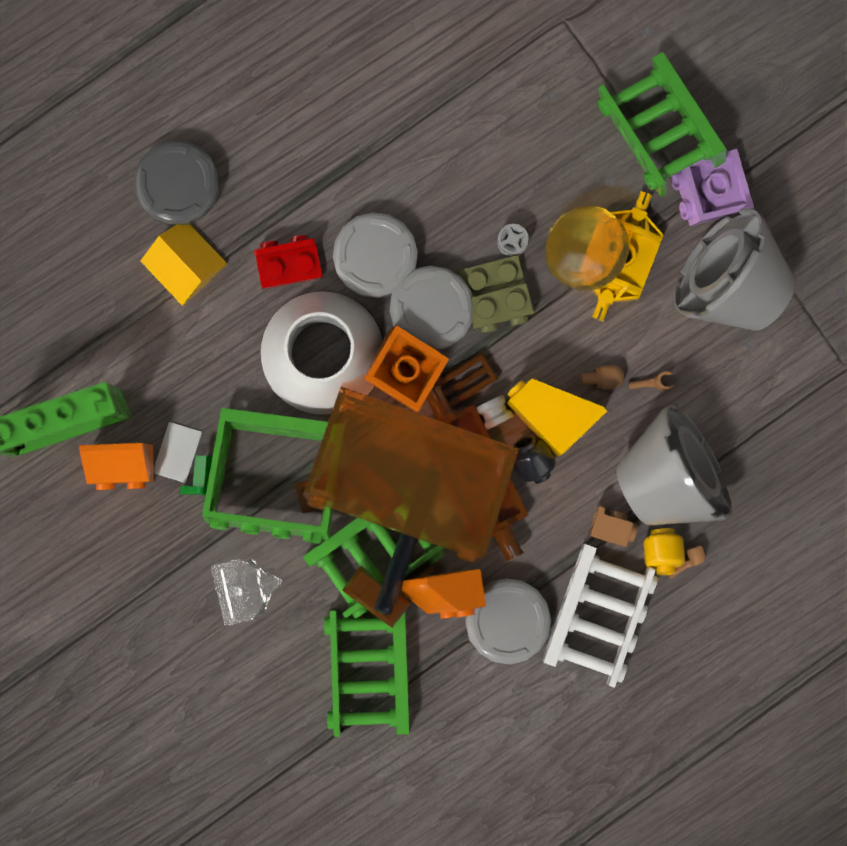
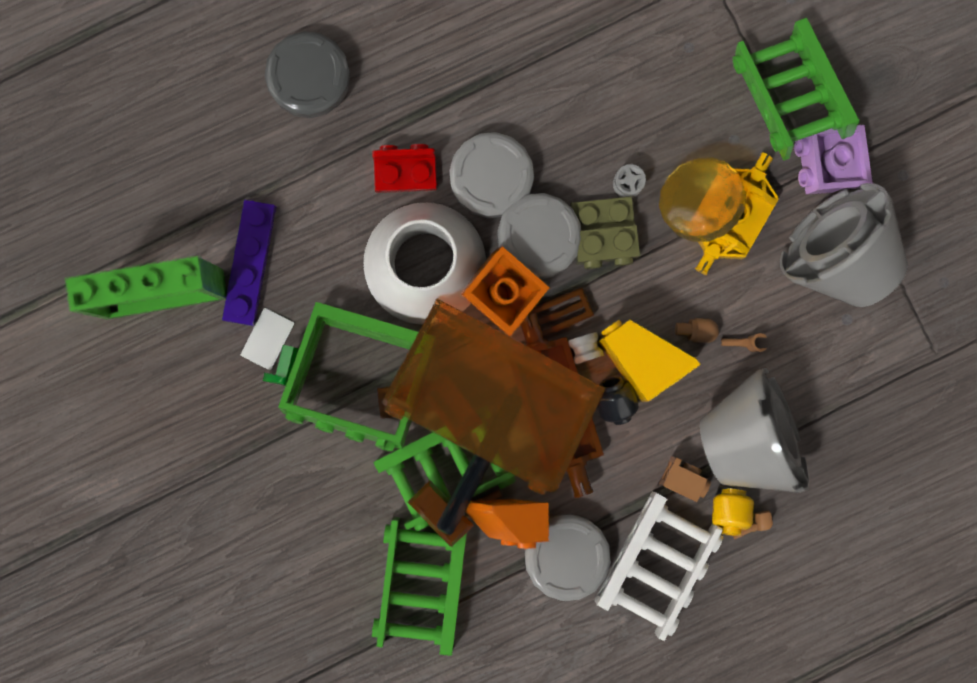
camera: 10 degrees right, 0 degrees up
(118, 464) = (205, 341): orange slope -> none
(147, 379) = (249, 263): none -> dark purple plate
(182, 262) = (301, 152): yellow slope -> none
(243, 589) = (310, 485): clear slope -> none

